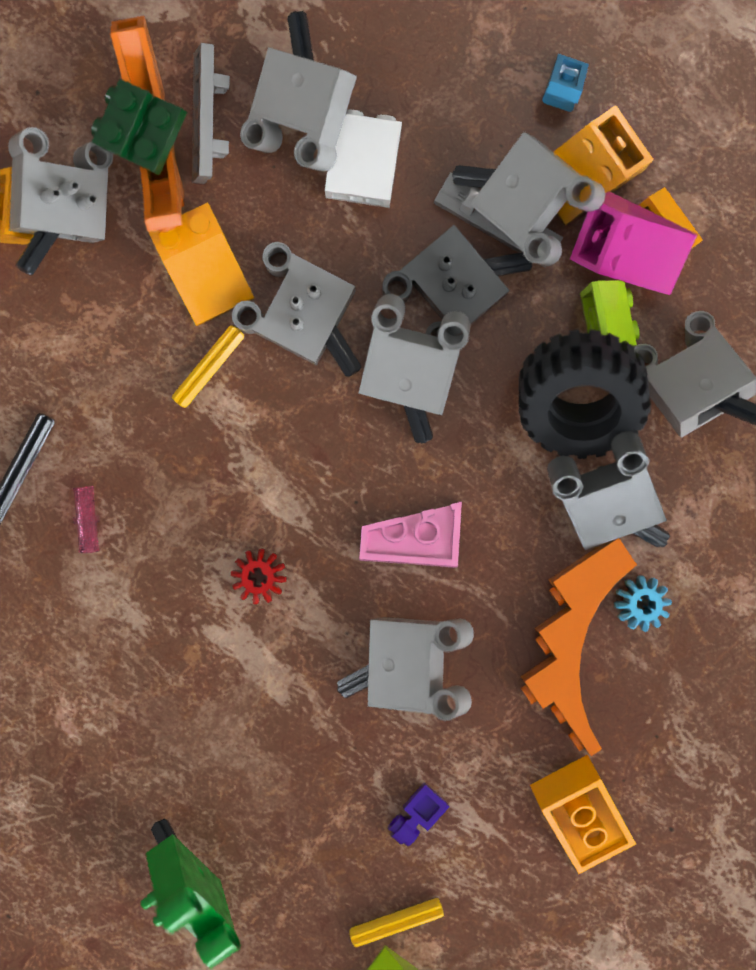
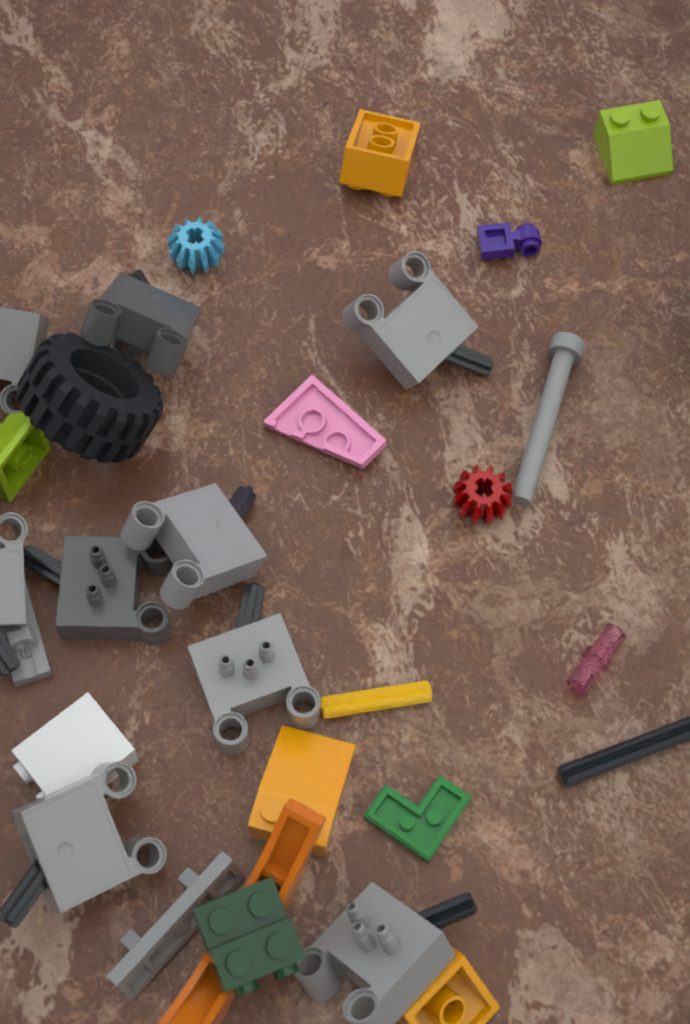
camera: 145 degrees left, 25 degrees down
(108, 310) = (418, 827): none -> green tile
(294, 748) = (564, 350): none -> light grey piece
(396, 922) = (589, 188): yellow axle -> none
(557, 678) = (235, 287): orange arch -> none

